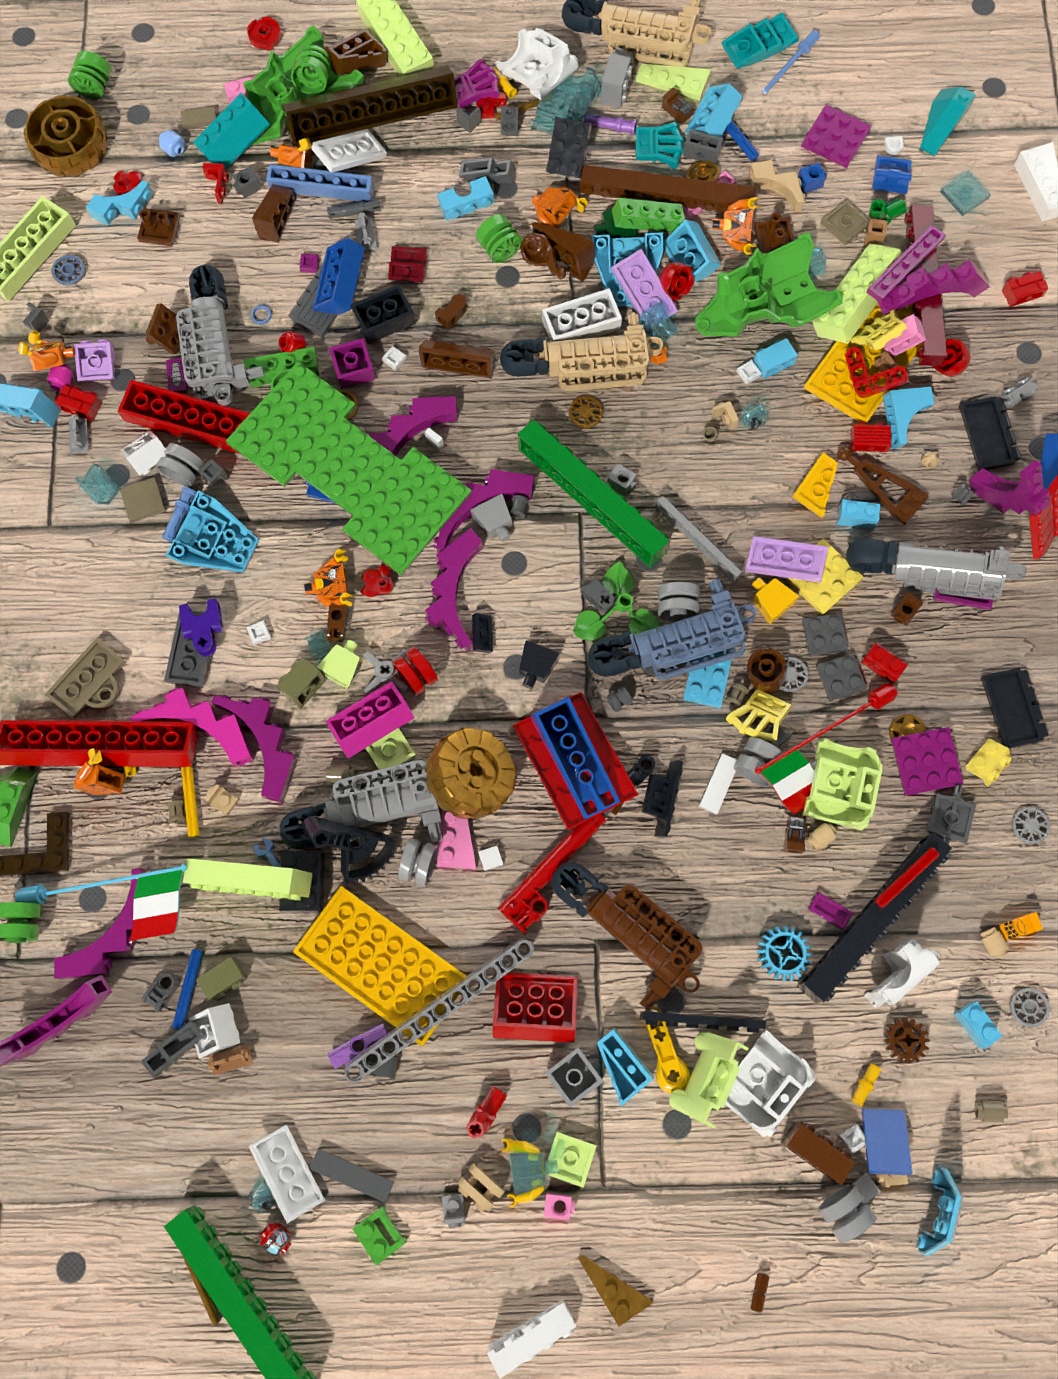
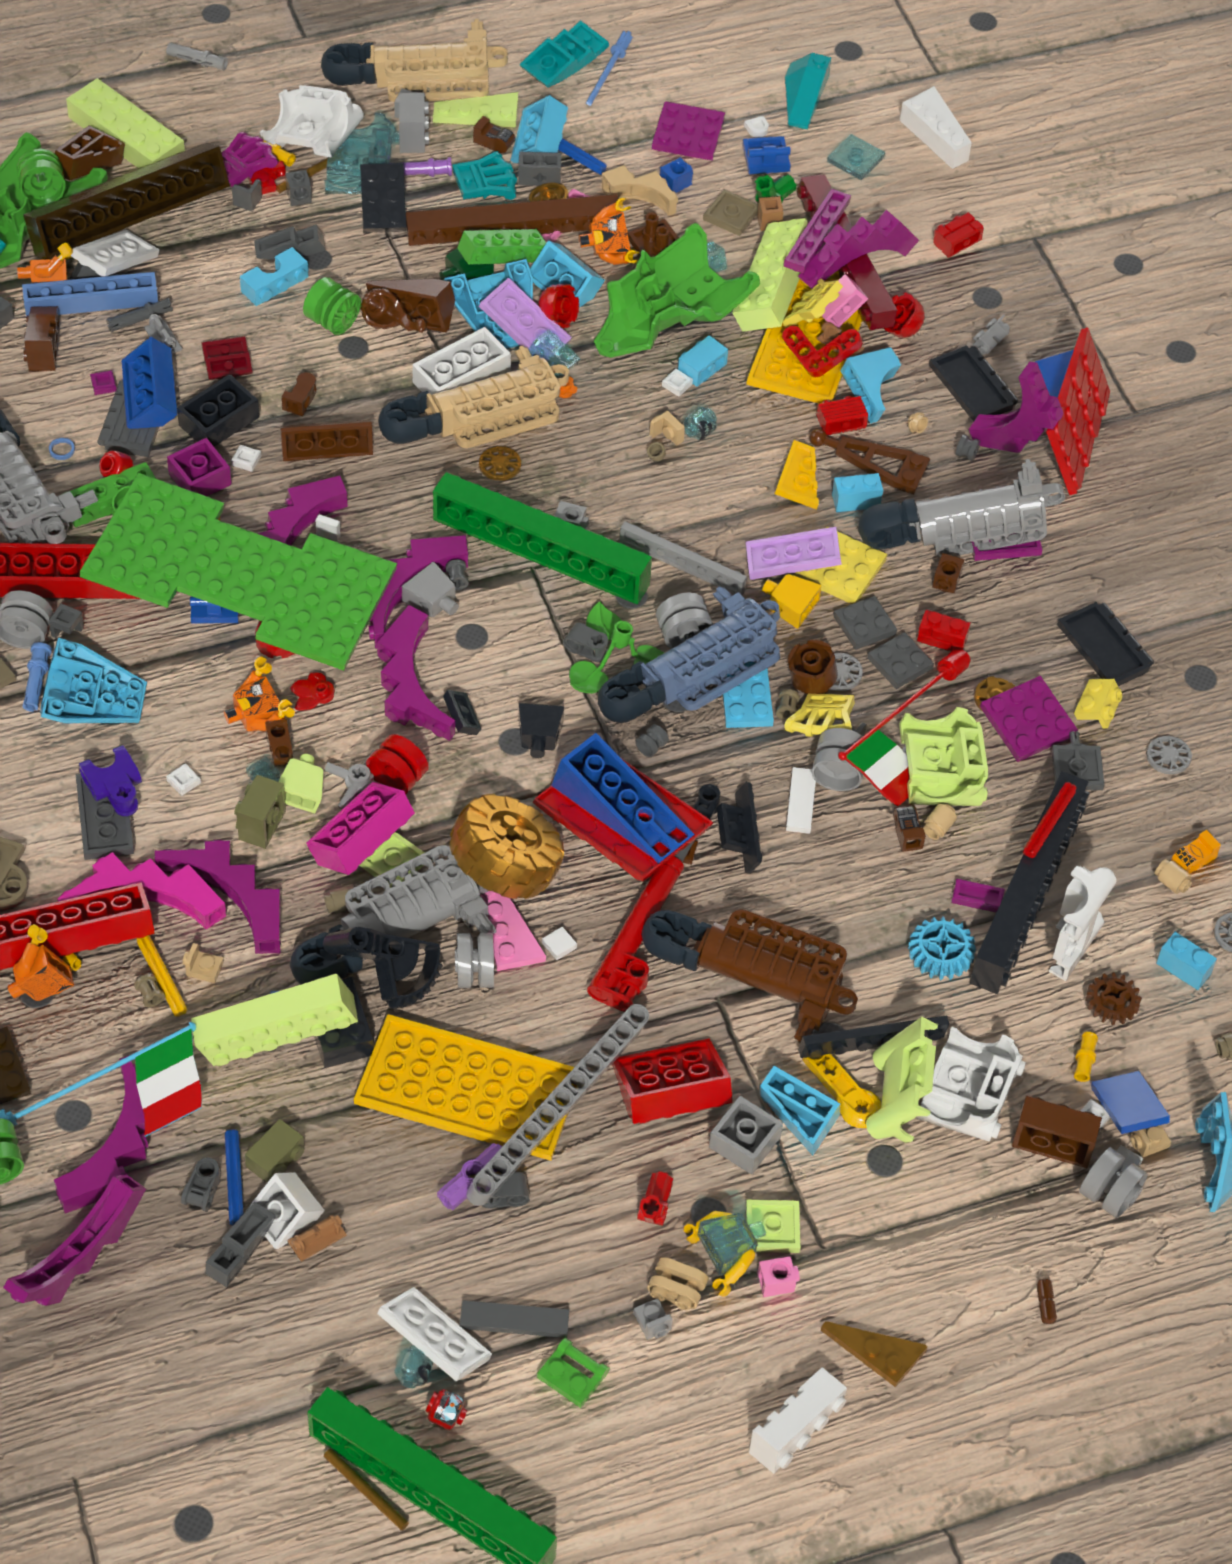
camera: 25 degrees left, 20 degrees down
(556, 204) = (387, 259): orange torso -> none

